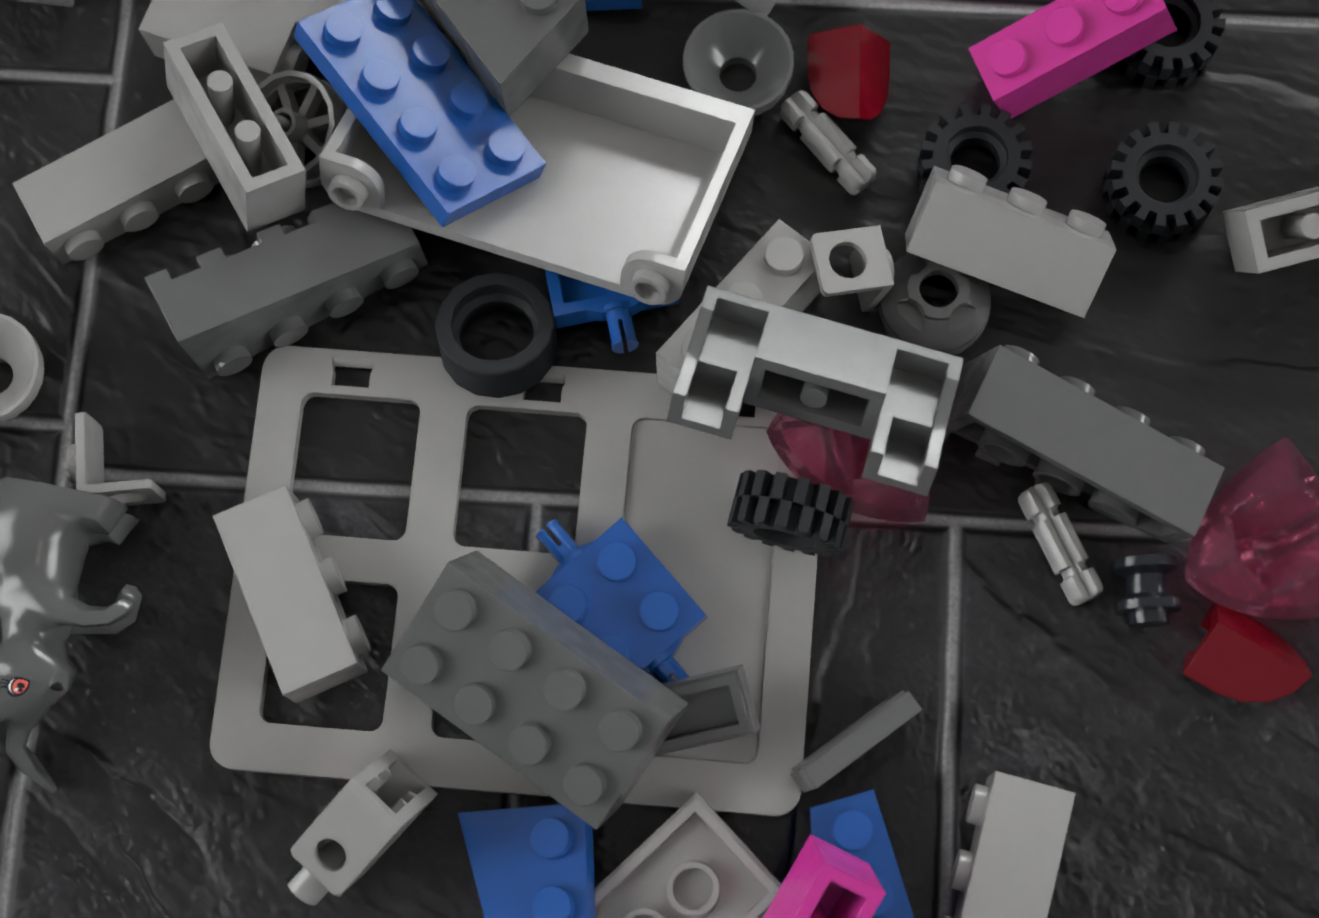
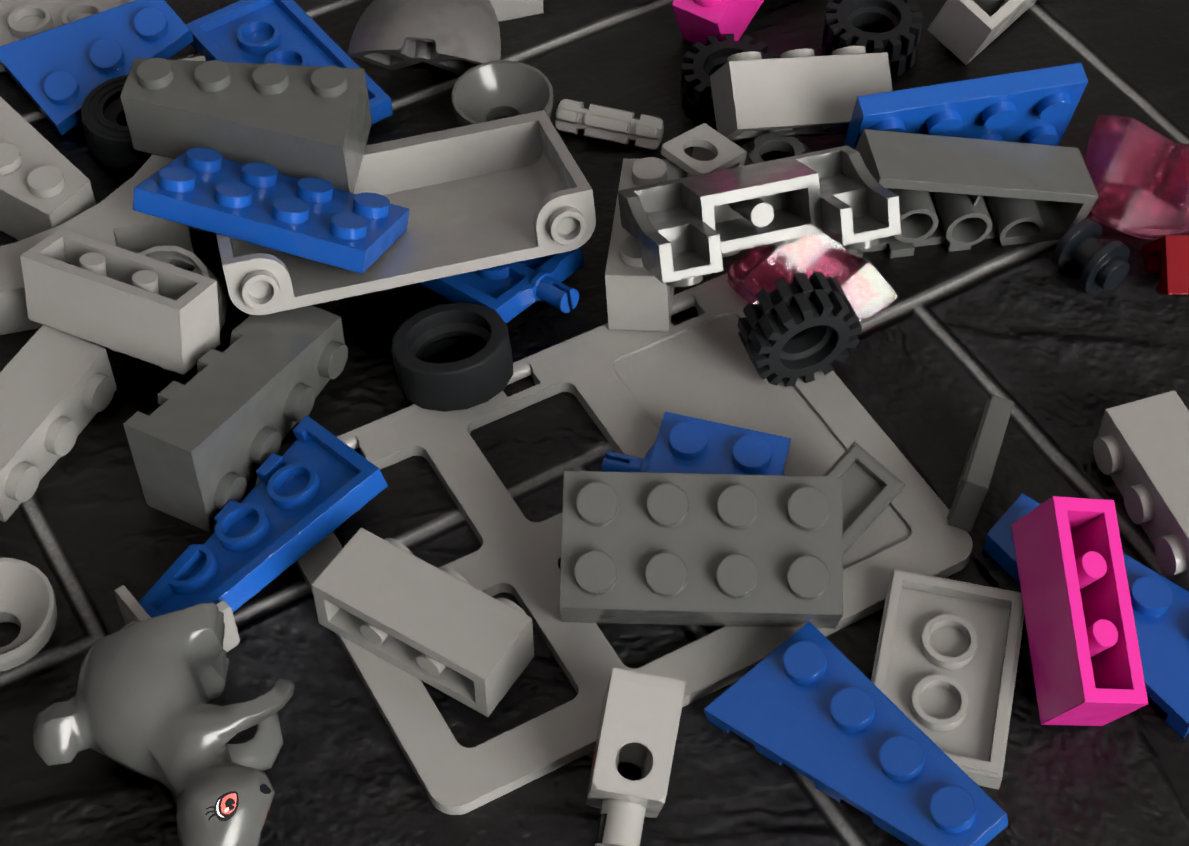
camera: 40 degrees left, 25 degrees down
(258, 416) = (278, 522): none -> blue wing
(849, 71) = (585, 72): dark red brick -> none
(1060, 544) = (1005, 270): light grey axle -> none
(1158, 378) = (1004, 107): none -> blue plate

